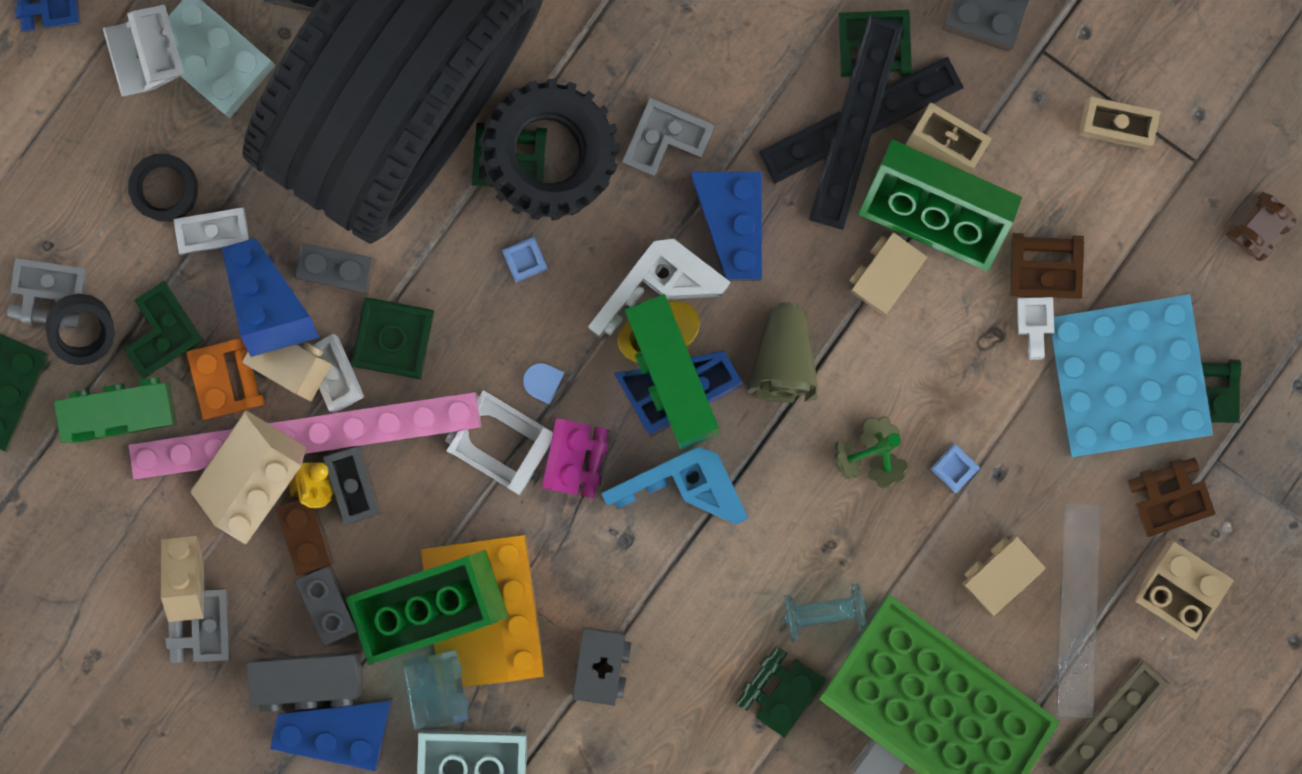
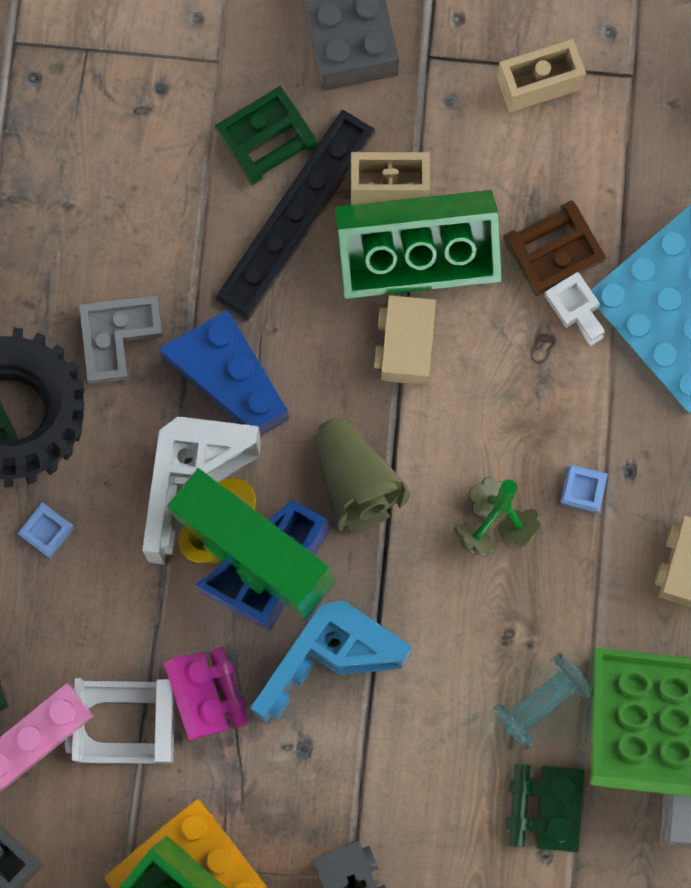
camera: 30 degrees left, 10 degrees down
(542, 381) = (131, 638): light blue tile -> none
(856, 122) = (292, 217): black tile -> none

